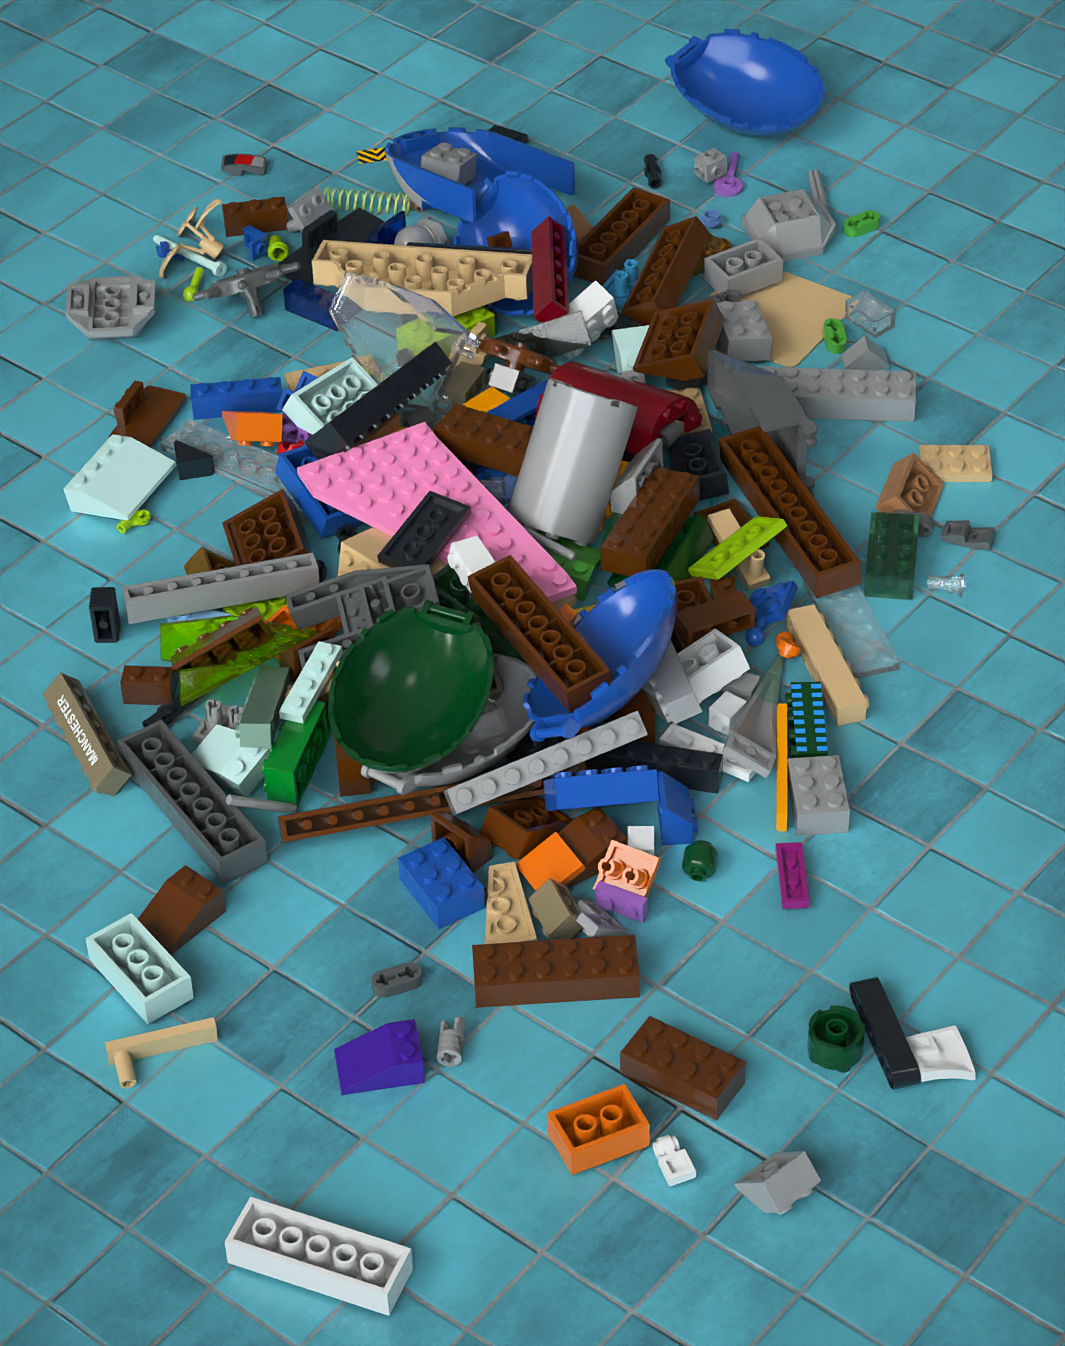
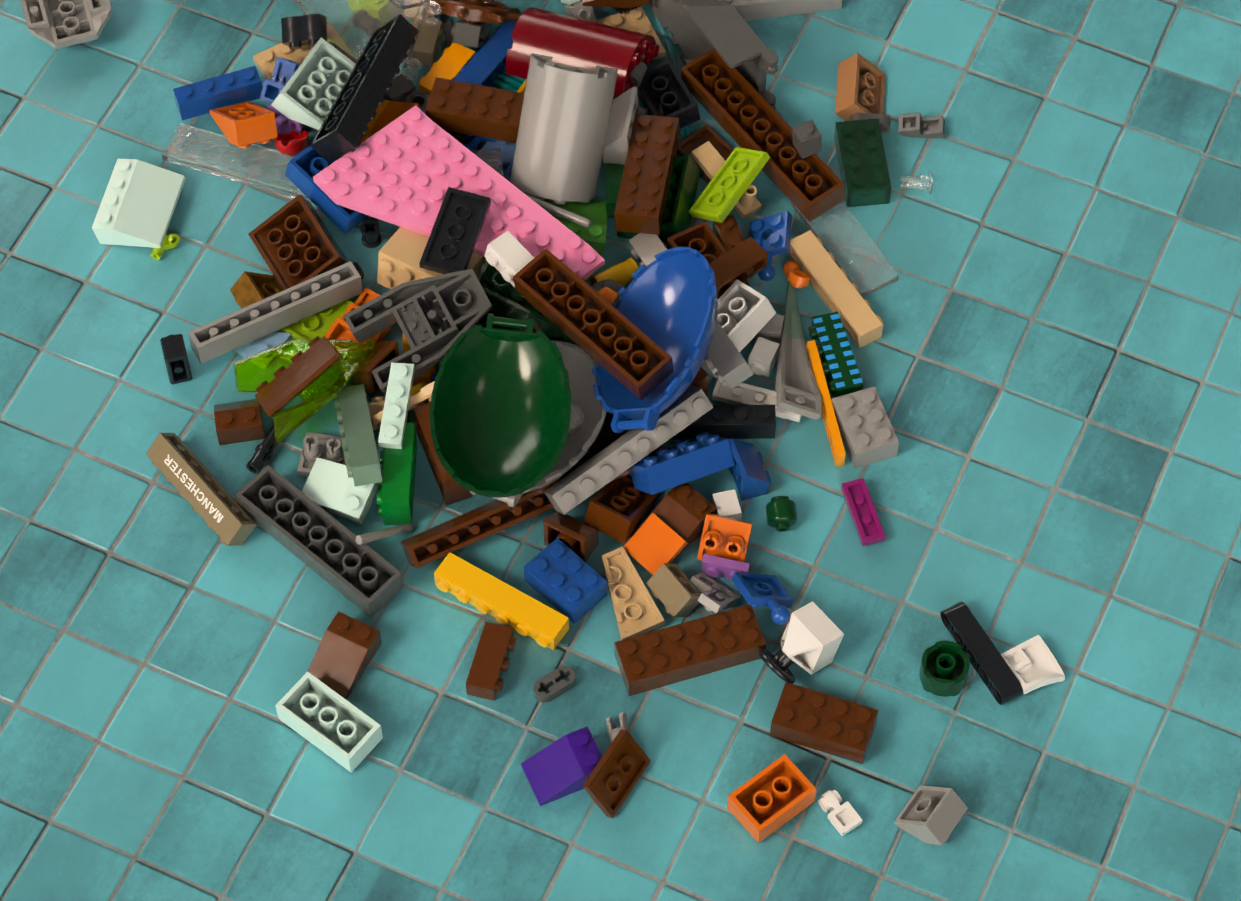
camera: 15 degrees left, 15 degrees up
(124, 1050) = (340, 806): tan piece -> none
(146, 412) = (137, 125): reddish brown bracket -> none
(192, 461) = (198, 171): black slope -> none
(333, 944) = (490, 661): none -> reddish brown brick
(336, 350) = (303, 30): none -> black brick
(366, 891) = (501, 601): none -> yellow brick
(432, 1072) = (616, 773): none -> reddish brown tile
(652, 925) = (765, 591): none -> blue plate
(687, 980) = (807, 640): none -> white piece
(830, 512) = (806, 139): none -> dark grey brick
(958, 462) = (892, 48): tan plate -> none

